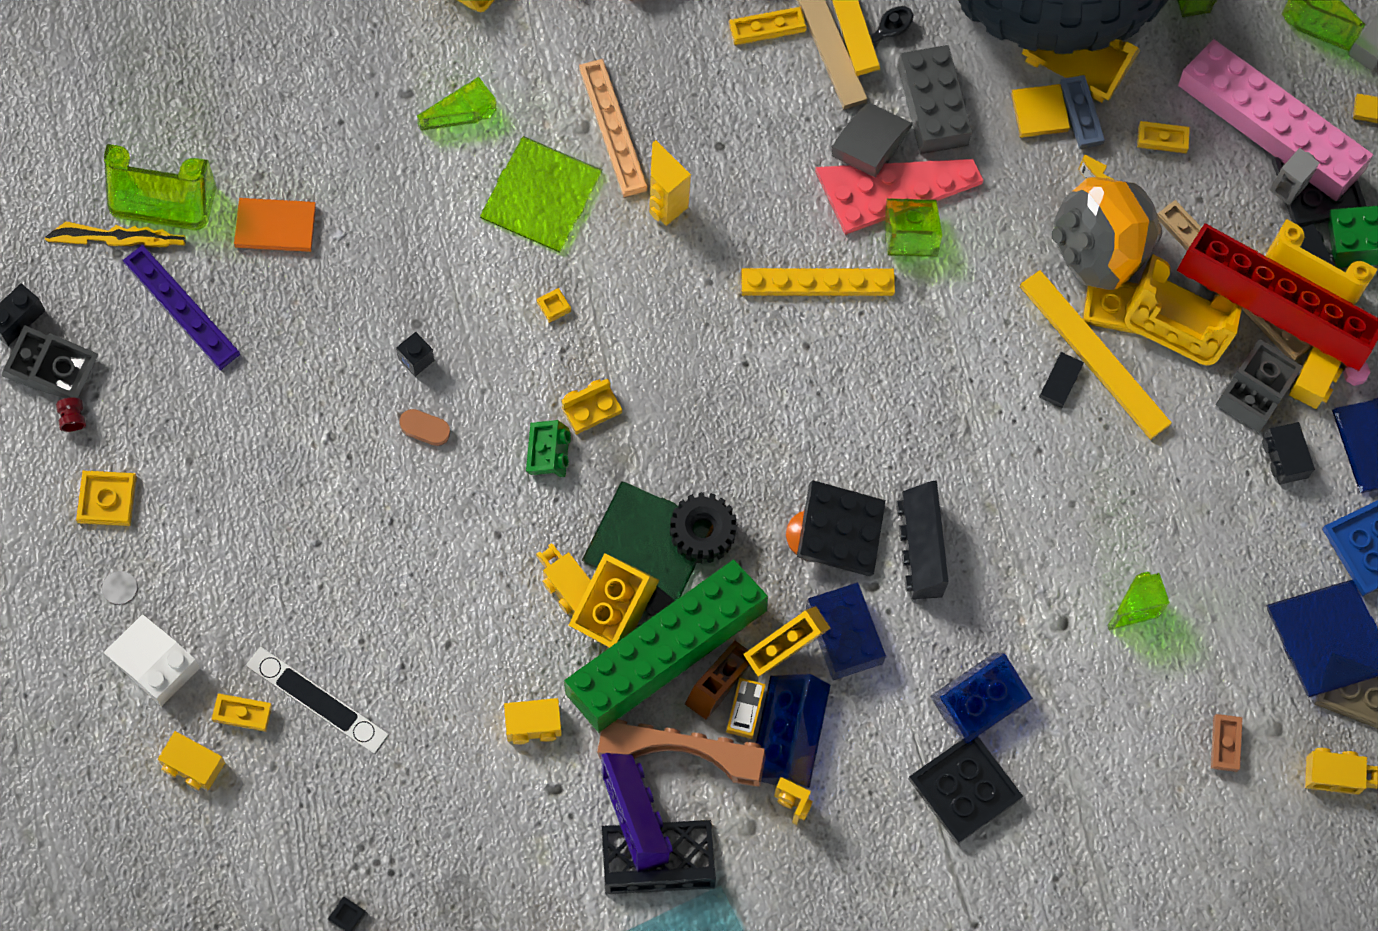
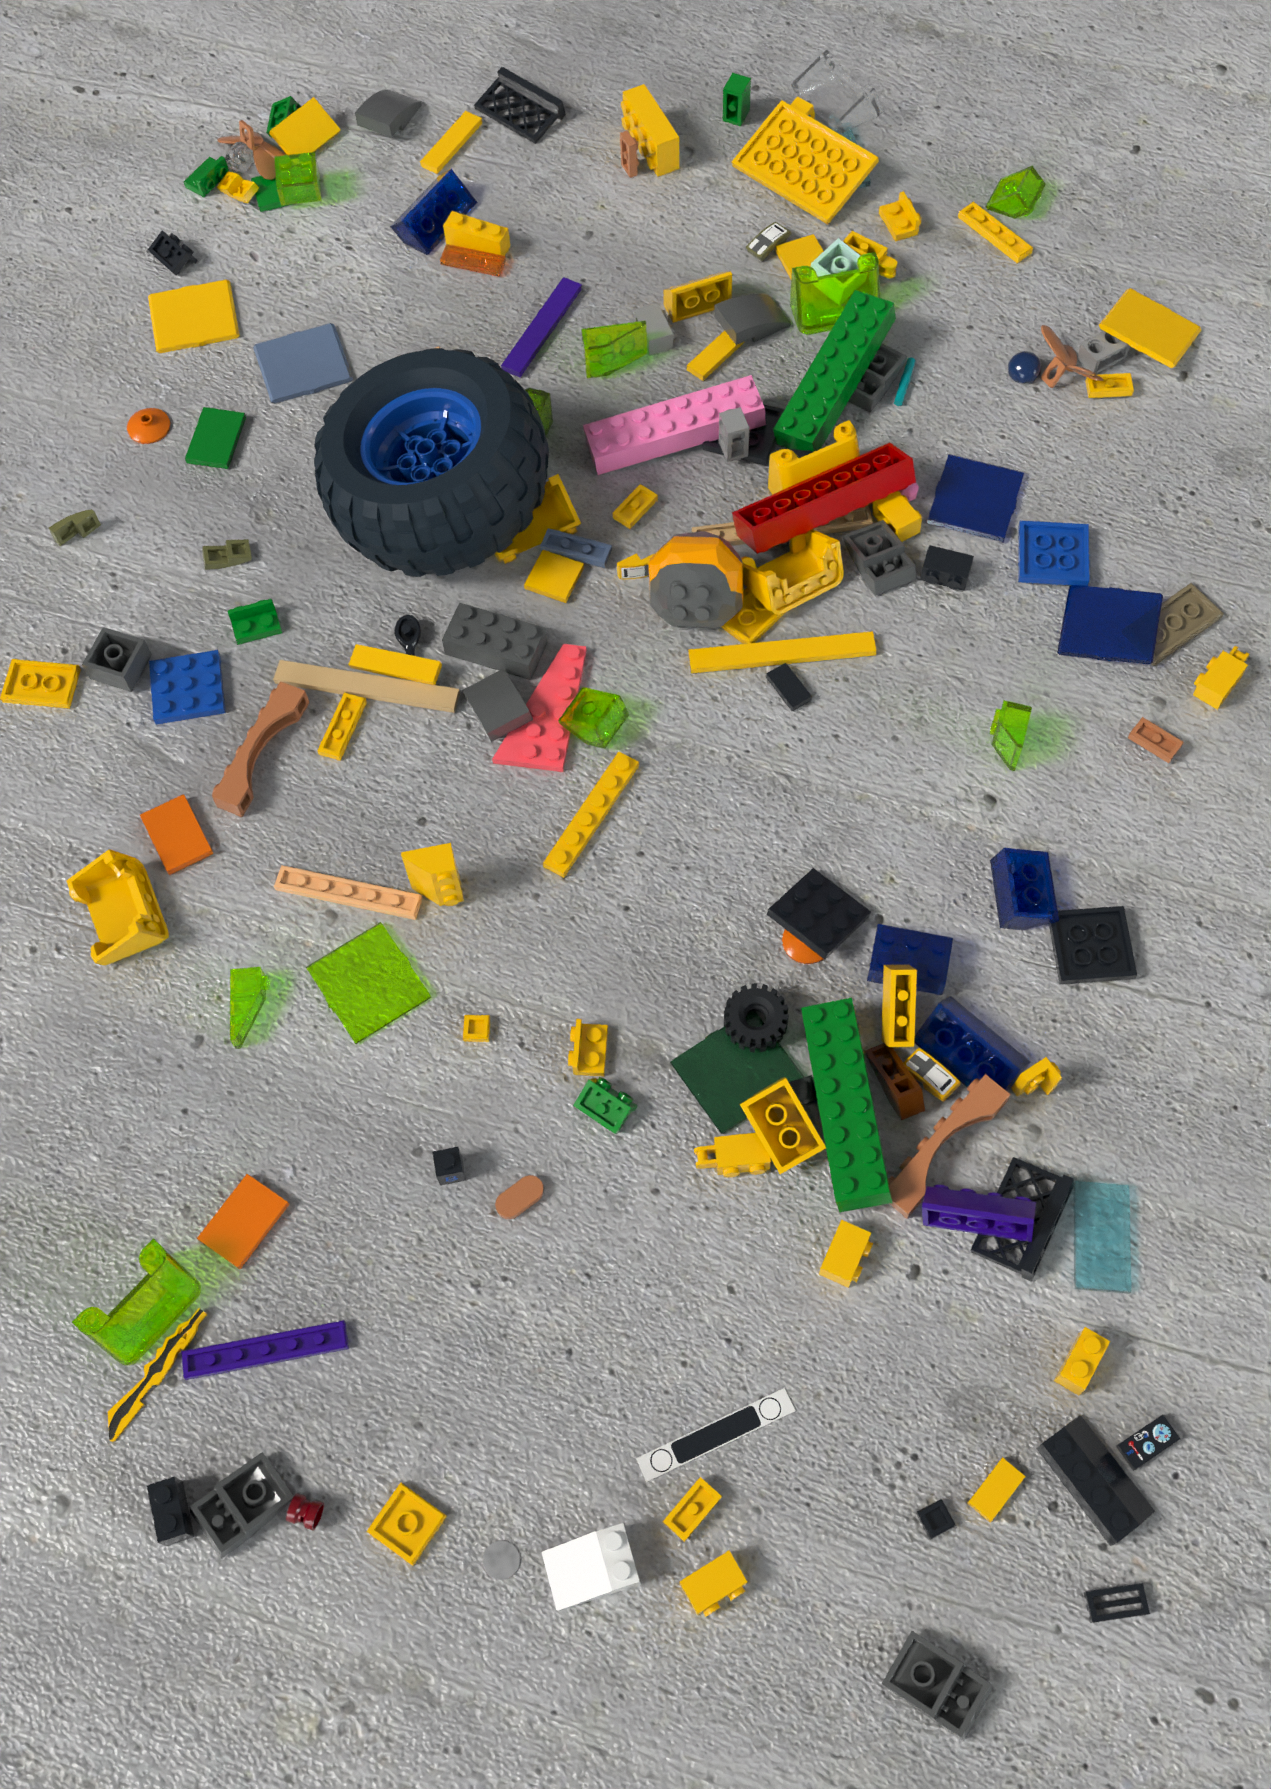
camera: 50 degrees left, 5 degrees down
(923, 541) = (869, 856): black slope -> none

